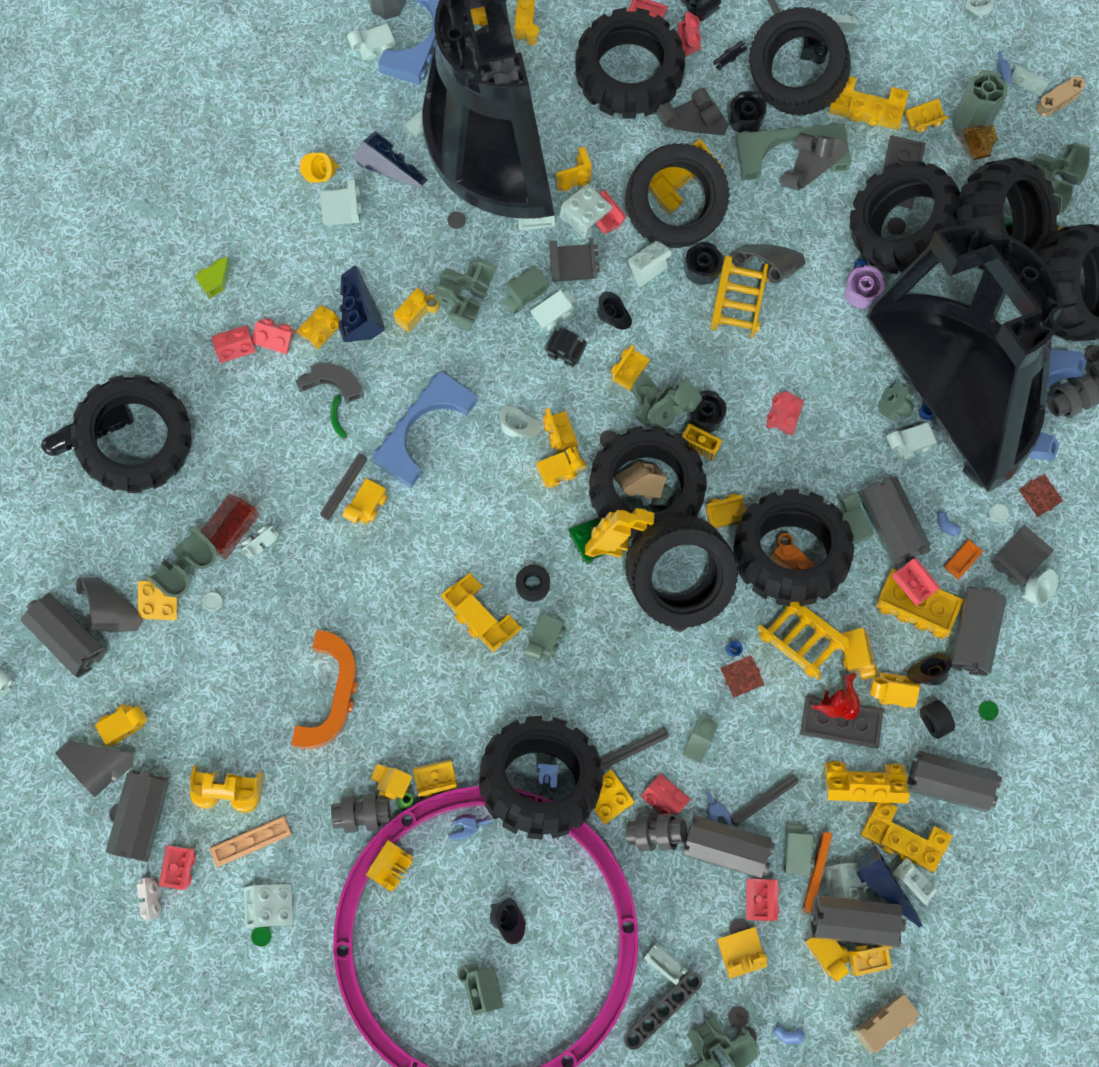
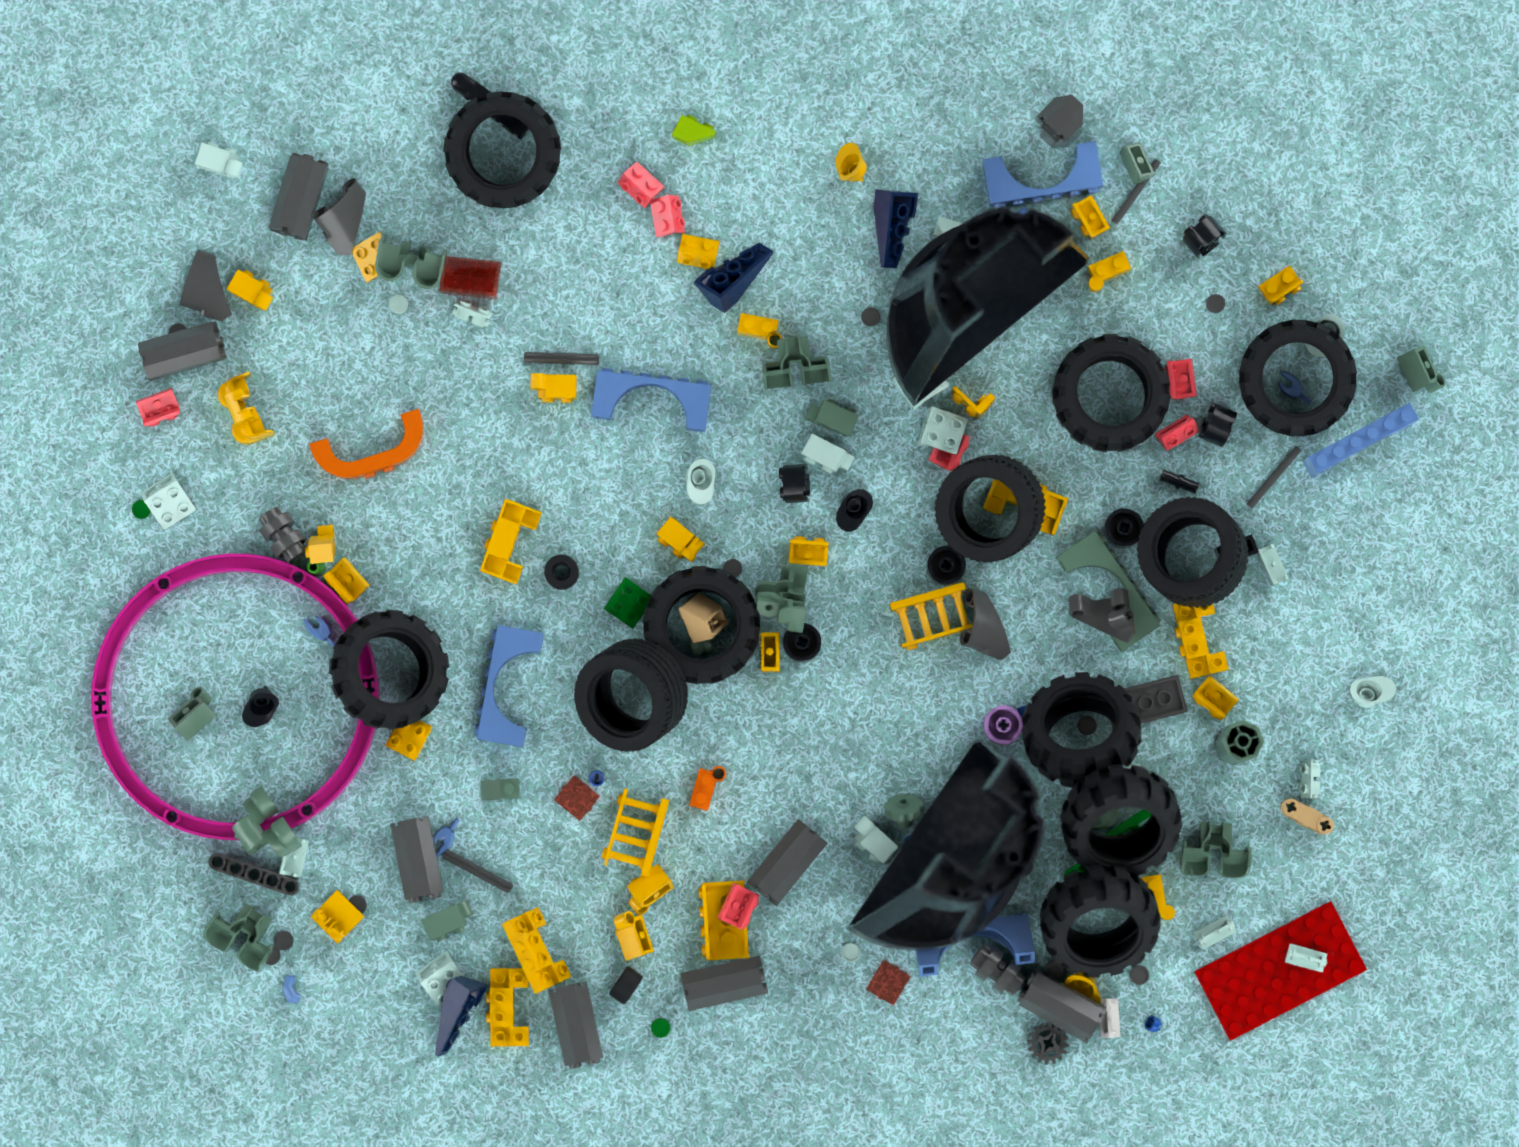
camera: 65 degrees right, 10 degrees up
(148, 889) = (116, 405): white hinge -> none
(250, 841) = (213, 456): light nougat tile -> none
(332, 375) = (658, 302): dark grey arch -> none
(334, 417) = (622, 312): green piece -> none
(341, 205) = (825, 204): light aqua bracket -> none
(372, 41) = (1005, 140): light aqua hinge -> none
(389, 865) = (253, 583): yellow hinge -> none
(545, 638) = (516, 609): sand green hinge -> none
(548, 773) = (398, 676): medium blue hinge -> none
(559, 430) = (714, 521): yellow bracket -> none
(573, 261) = (886, 445): dark grey panel -> none
(614, 529) = (636, 621): yellow bracket -> none
(627, 990) = (254, 837): none -> sand green piece
(633, 748) = (461, 735): dark grey axle -> none
(637, 714) = (507, 645): none -> medium blue arch
(649, 262) = (916, 515): light aqua bracket -> none
(664, 832) = (398, 794): dark grey piece -> none
(665, 796) = (434, 785): coral bracket -> none
(696, 115) = (1097, 479): dark grey panel -> none
(725, 511) = (719, 708): yellow bracket -> none
(762, 899) = (390, 911): coral bracket -> none
(784, 412) = (842, 713): coral bracket -> none
(801, 512) = (745, 760): black tyre -> none
(816, 874) = (437, 946): orange tile -> none
(830, 957) = (374, 990): yellow hinge -> none
(843, 703) = (595, 897): red piece -> none
(854, 515) = (769, 824): sand green hinge -> none
(857, 921) = (408, 997): dark grey brick -> none
(861, 731) = (581, 904): dark grey tile -> none
(869, 959) = (387, 1026): yellow bracket -> none
(886, 1024) = (340, 1065): tan wedge -> none
(914, 881) = (472, 1032): light aqua hinge -> none
(931, 671) = (666, 958): black piece -> none
(946, 526) = (811, 912): medium blue arm -> none
(963, 559) = (789, 941): orange tile -> none
(980, 140) = (1211, 762): clear orange slope -> none
(1004, 68) = (1306, 748): medium blue hand -> none
(1022, 556) = (817, 991): dark grey panel -> none
(1041, 589) = (796, 1023): light aqua piece -> none

